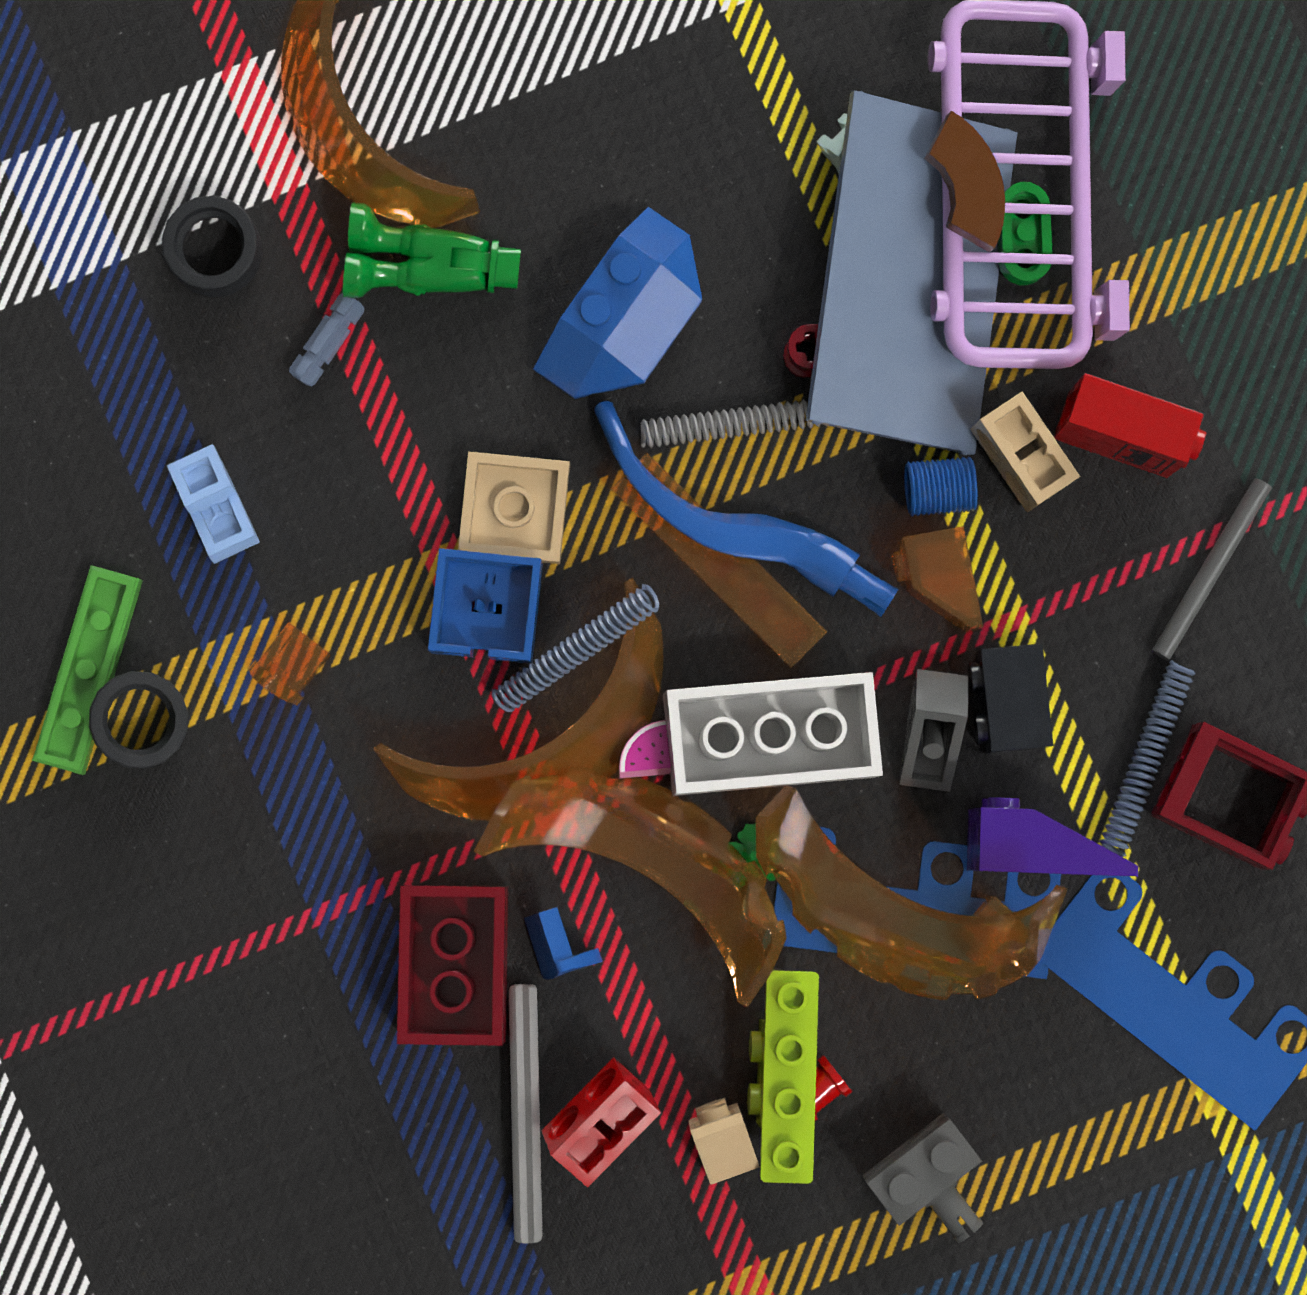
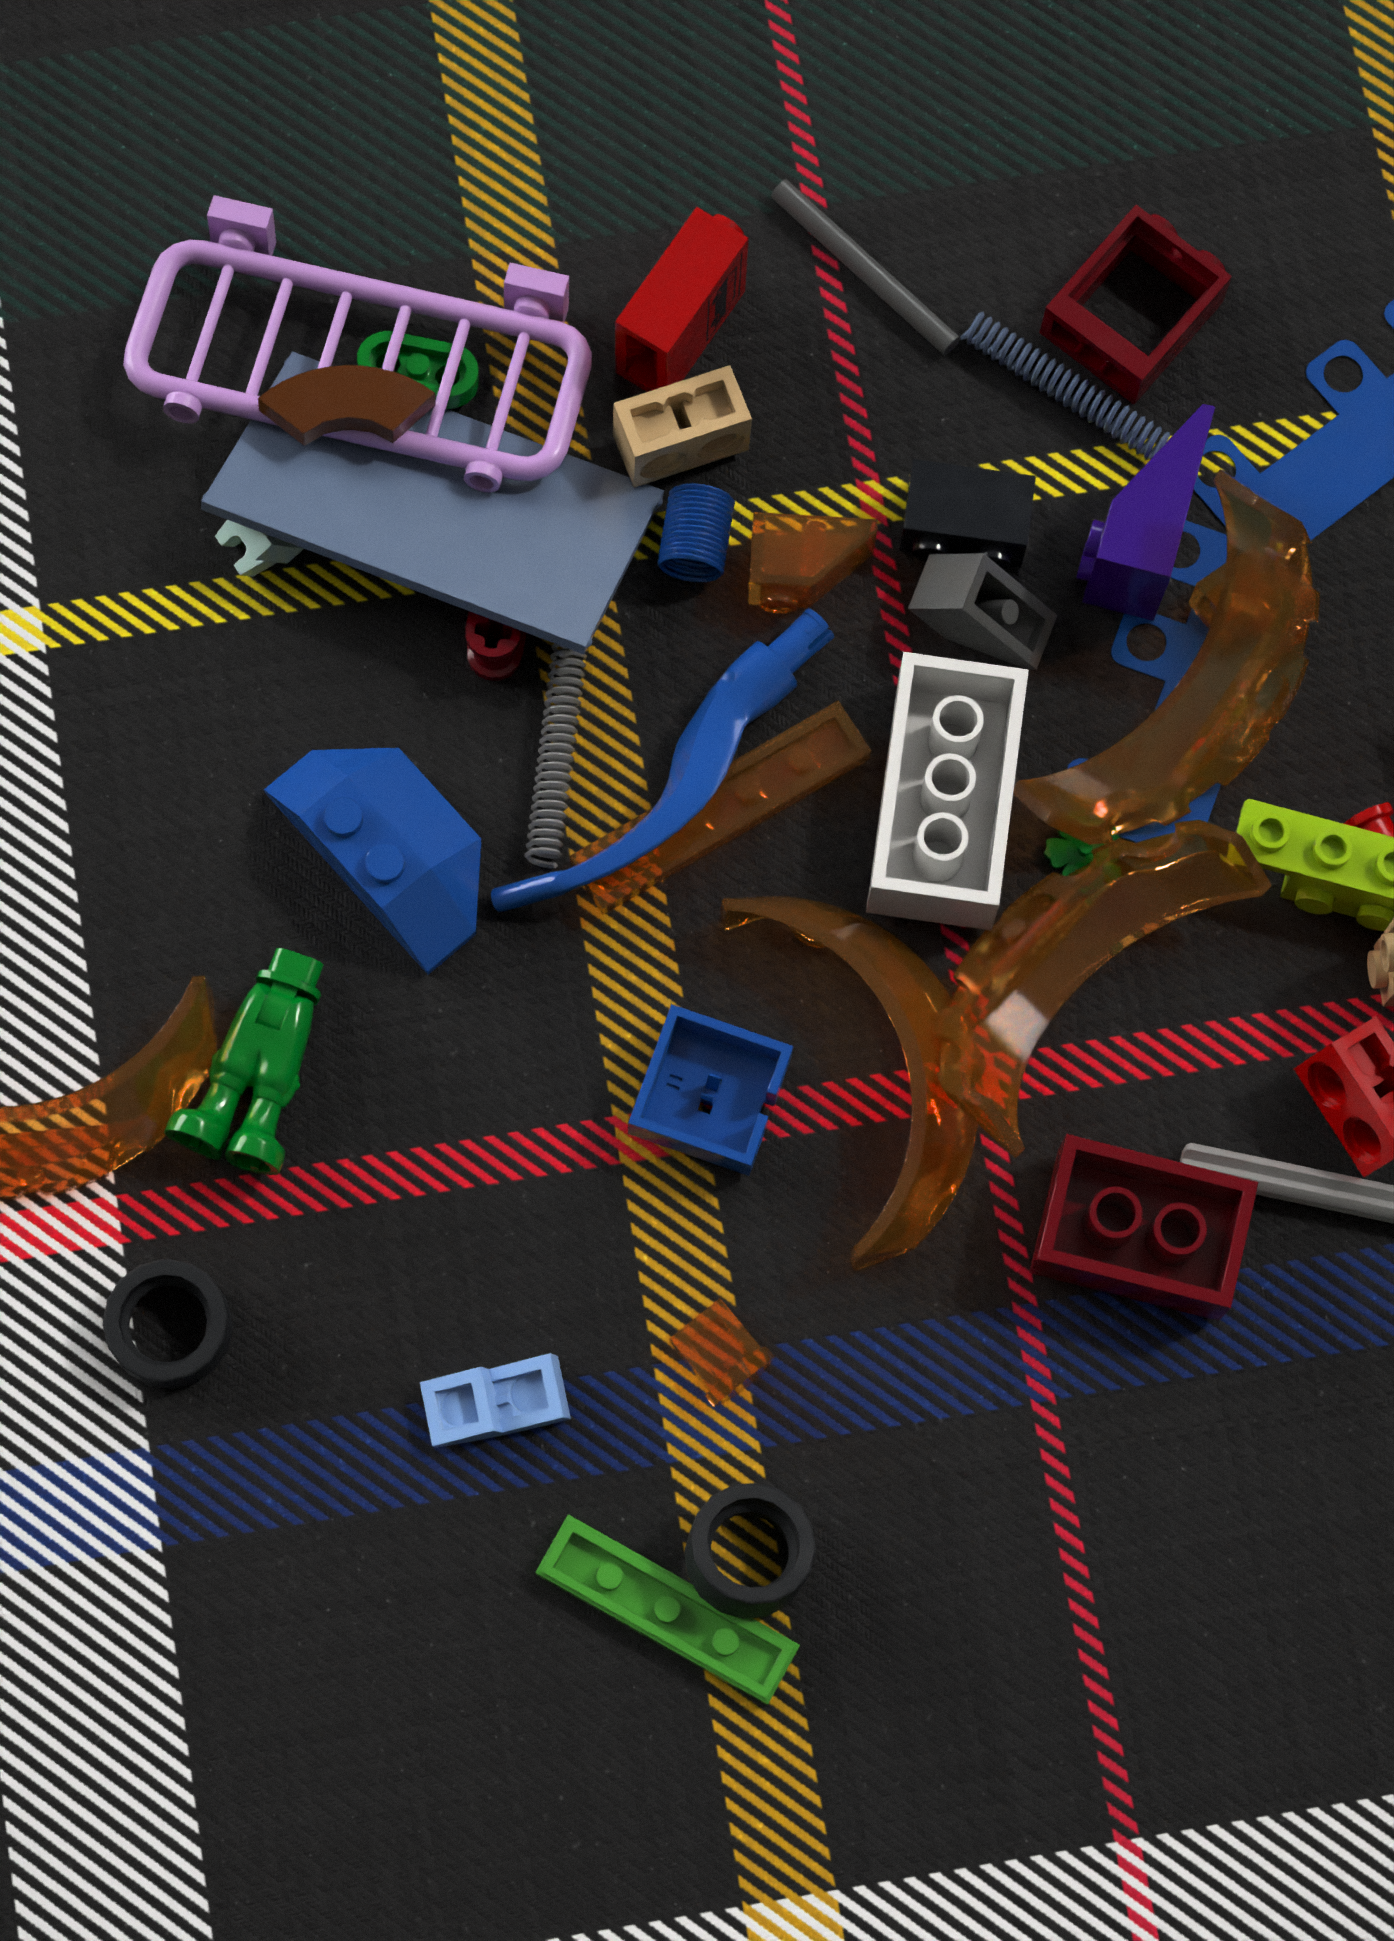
camera: 80 degrees left, 10 degrees down
(326, 340) = (325, 1211): sand blue axle -> none
(514, 506) = (594, 1030): tan plate -> none
(553, 946) = (1143, 1107): blue tile -> none
(612, 627) = (803, 986): sand blue piece -> none
(646, 752) = (934, 942): dark pink tile -> none

